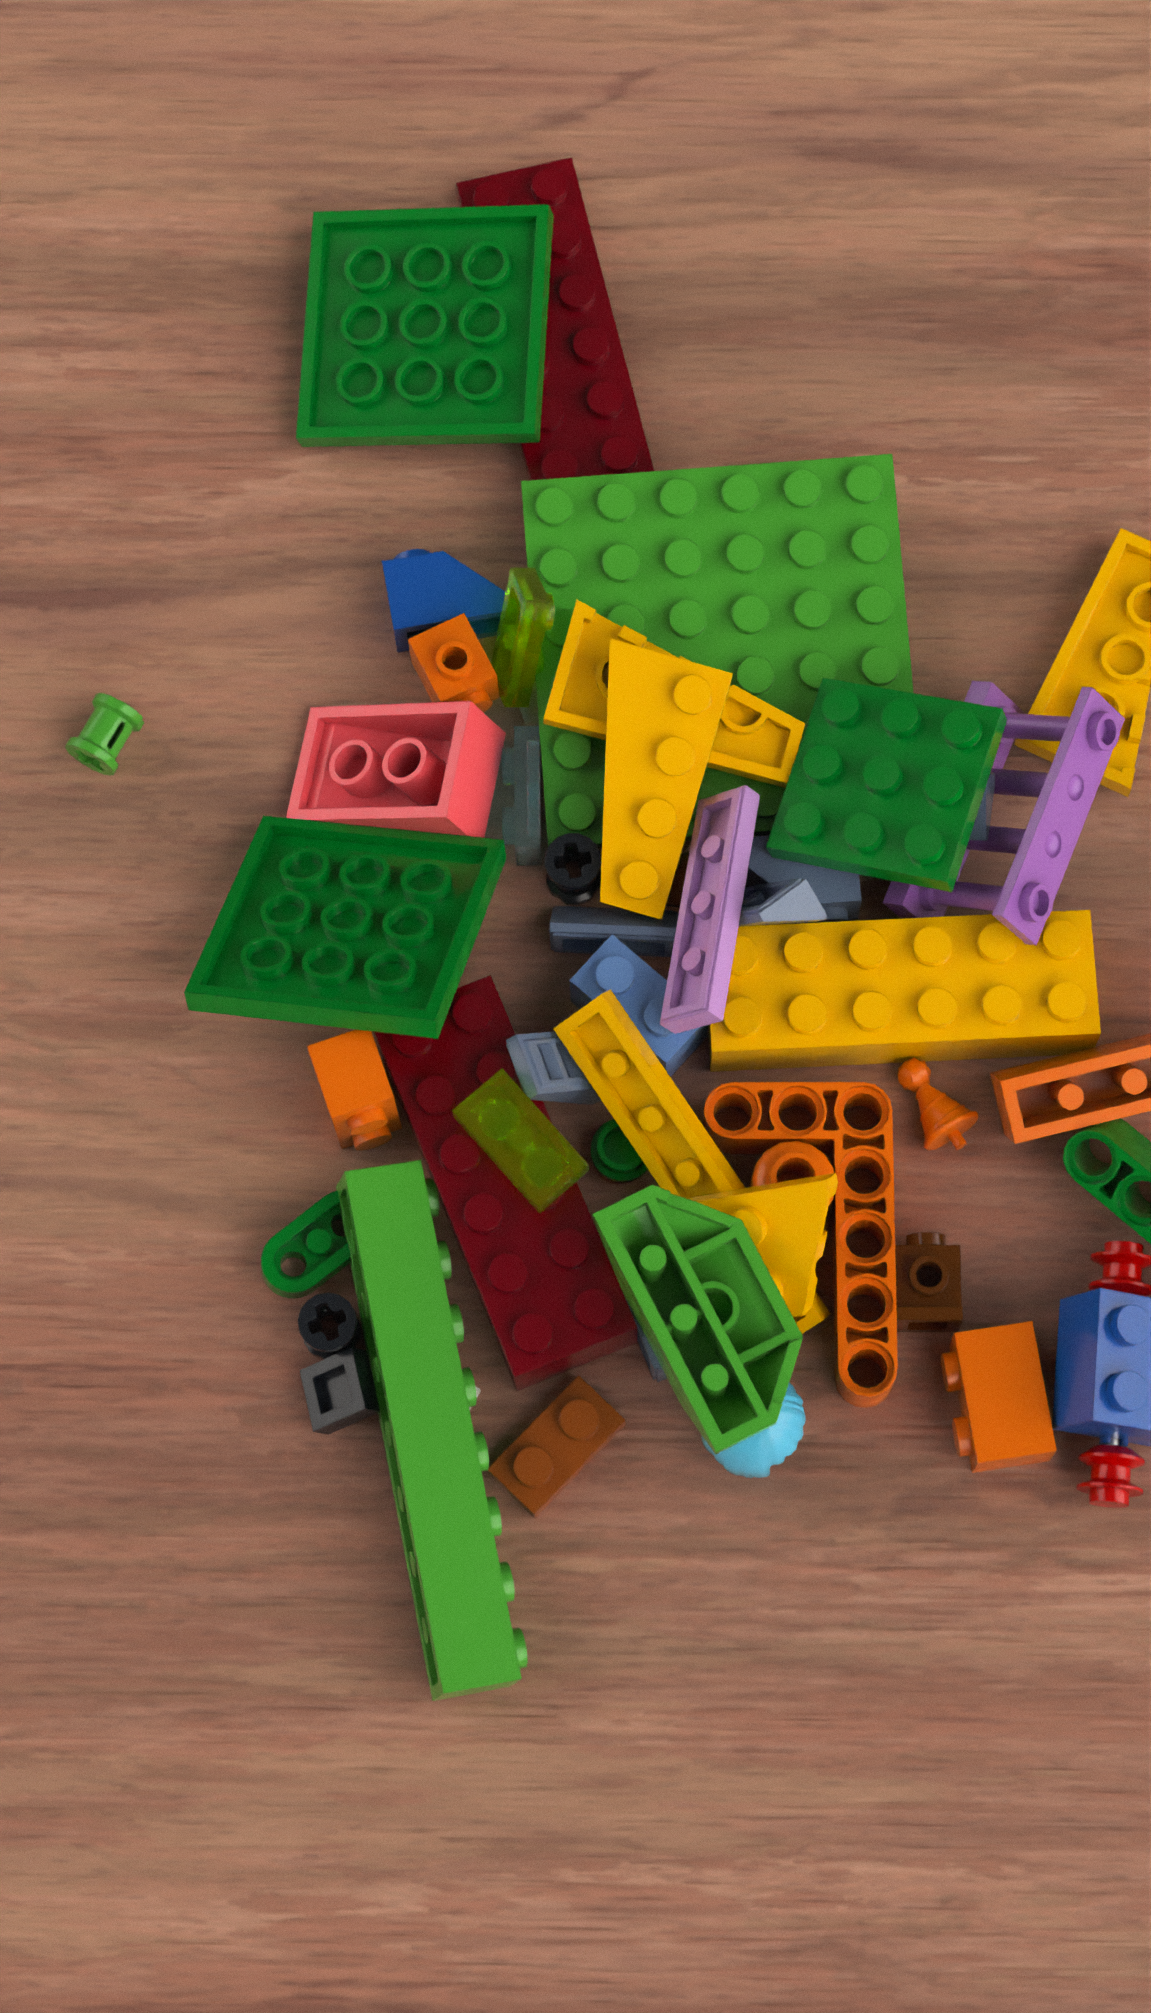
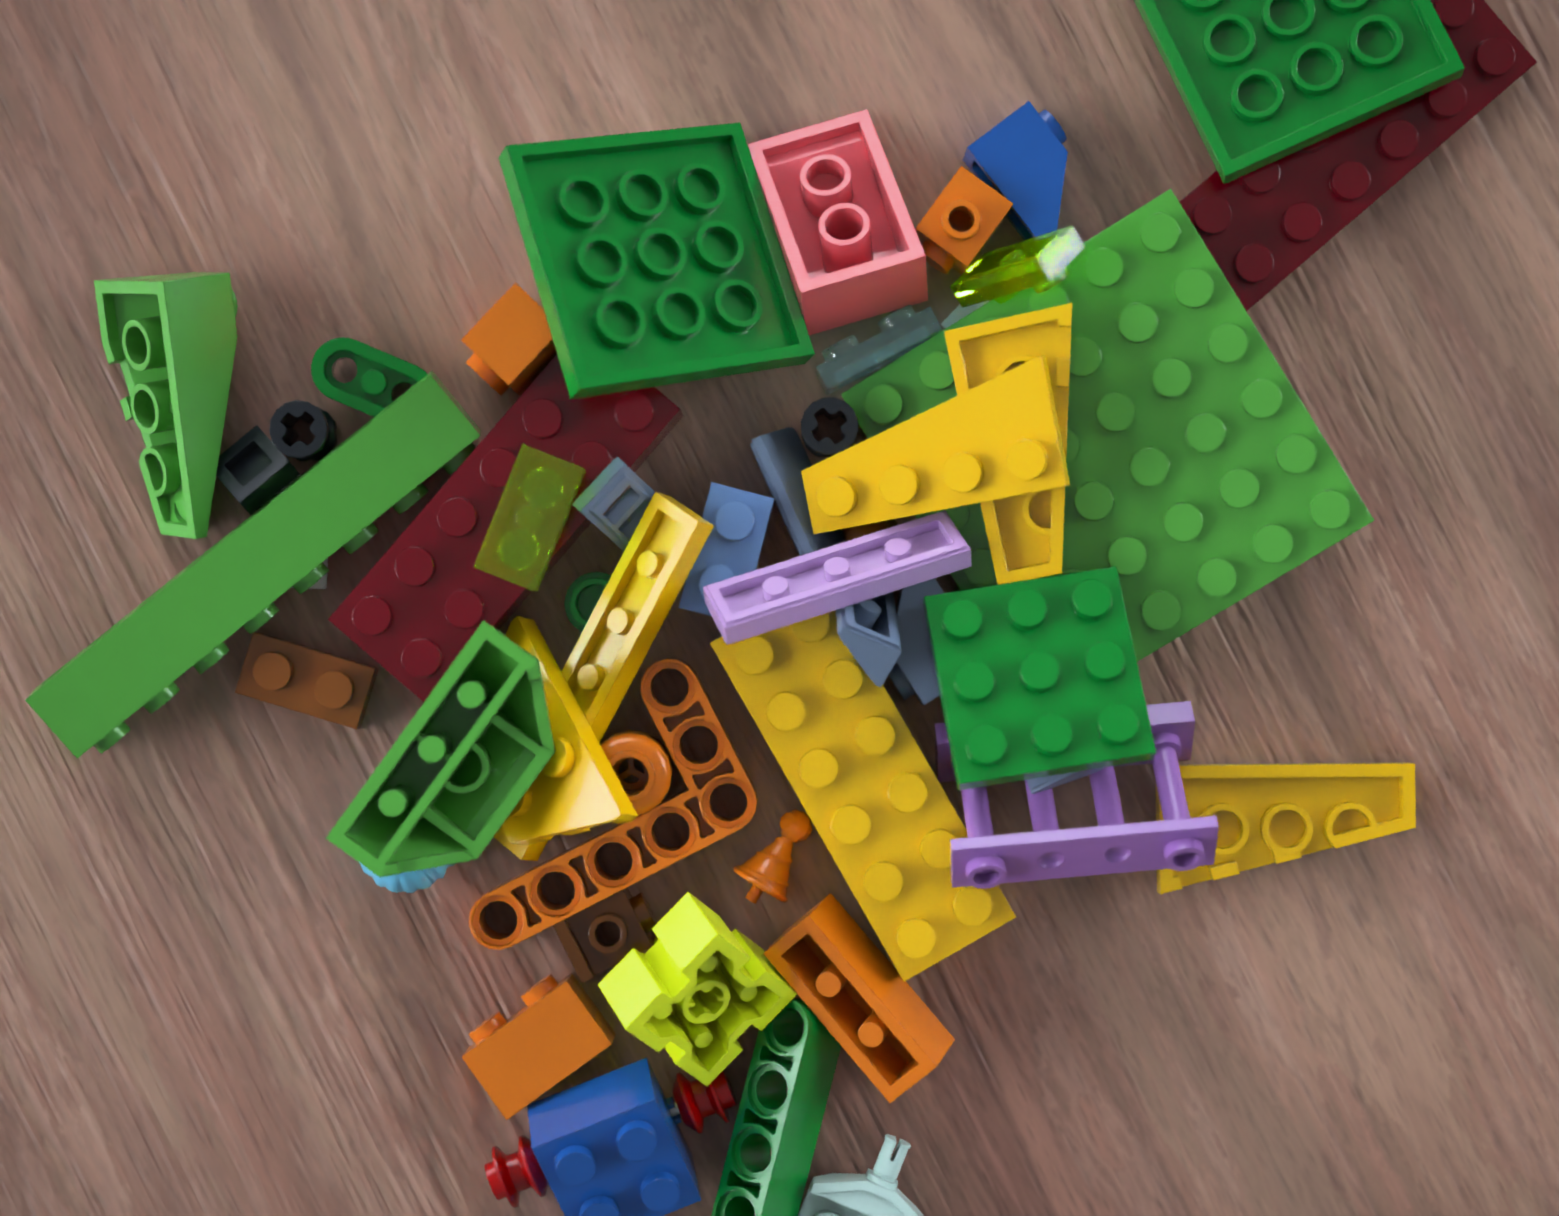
camera: 60 degrees right, 15 degrees up
(214, 1419) = (177, 362): none -> bright green wedge
(1018, 1215) = (696, 989): none -> neon yellow brick

